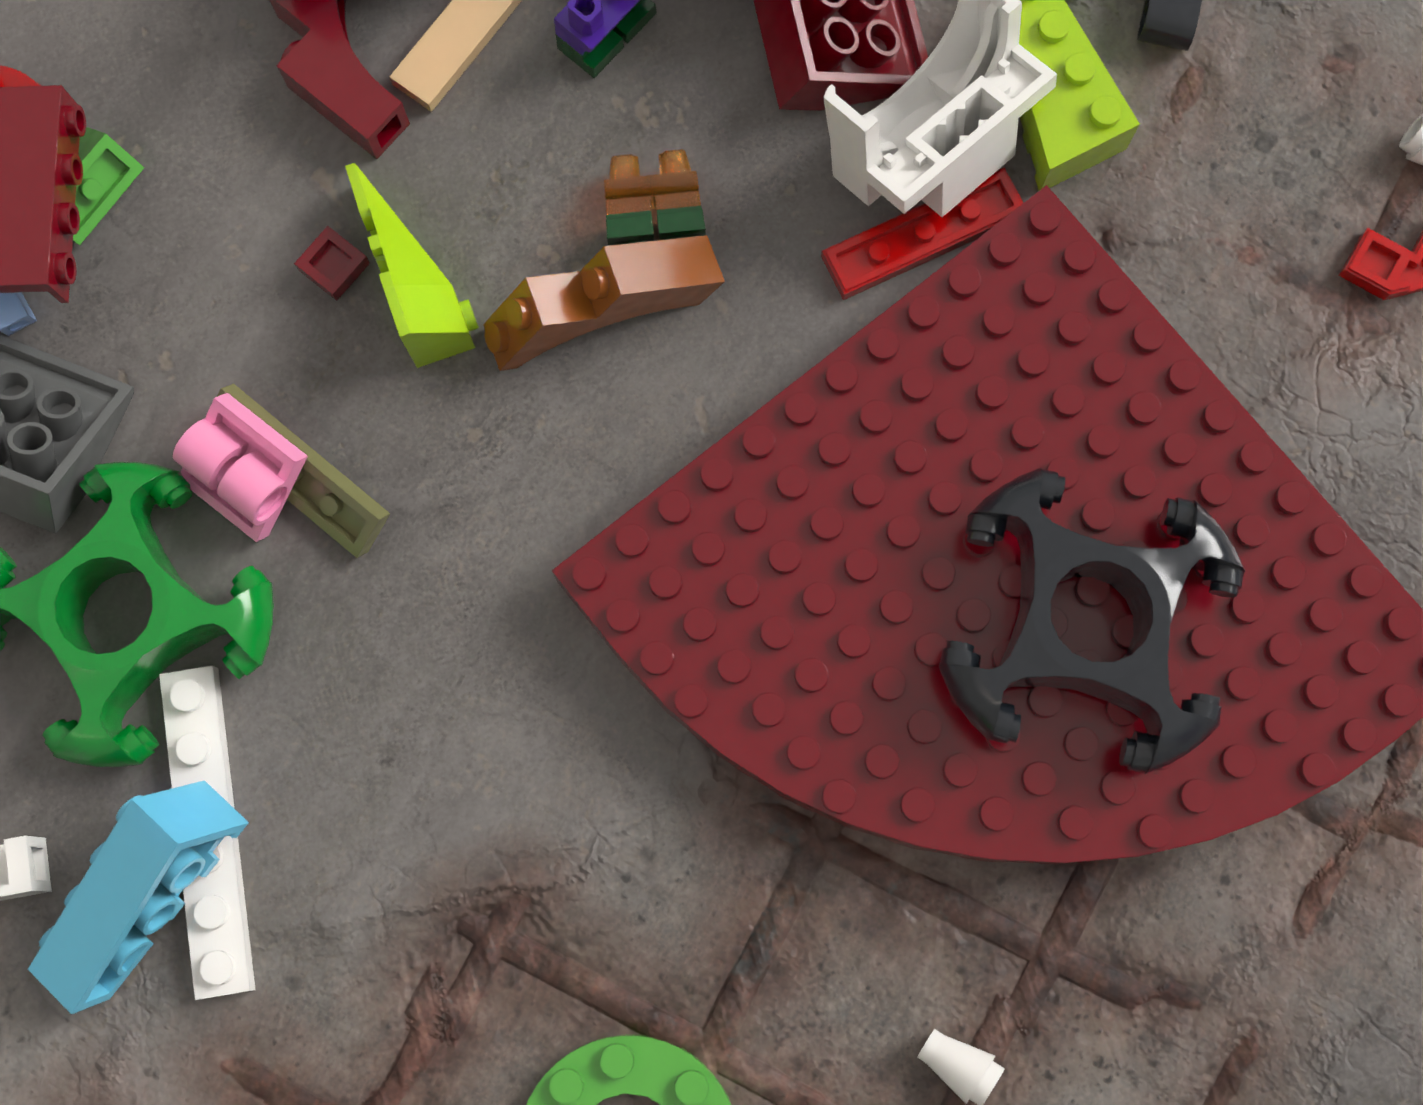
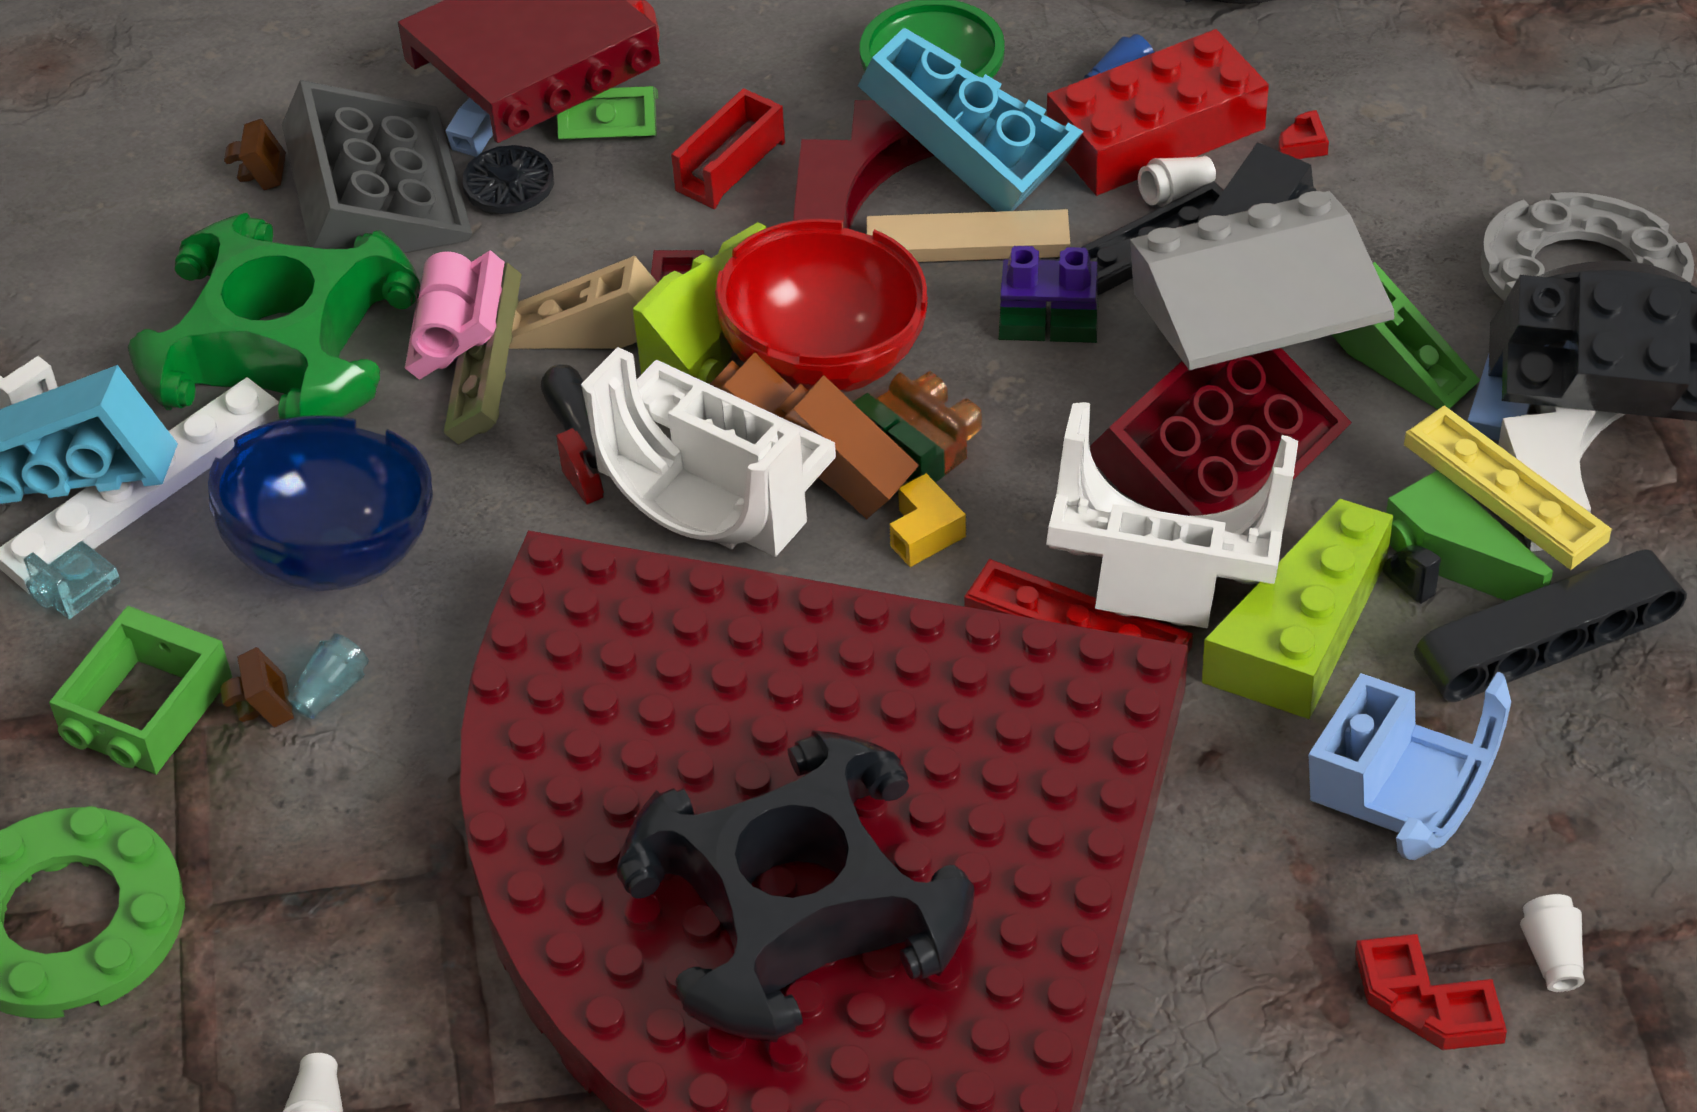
camera: 55 degrees right, 30 degrees down
(99, 319) = (508, 179): none -> black wheel
(219, 123) = (727, 147): none -> red window
(276, 949) = (71, 579): none -> clear light blue bracket
(323, 356) = (585, 311): none -> tan slope
(392, 711) = (320, 501): none -> clear blue piece
(396, 933) = (157, 643): none -> bright green window
(405, 439) = (565, 398): none -> black piece
(475, 479) = (575, 469): none -> red tile
(499, 185) = (822, 302): none -> red piece
(530, 871) = (259, 690): none -> reddish brown tile
(552, 810) = (328, 675): none -> clear light blue cone
(590, 386) = (728, 466): none -> white piece
(753, 261) = (928, 522): none -> yellow piece
(1246, 126) = (1399, 773): none -> light blue piece

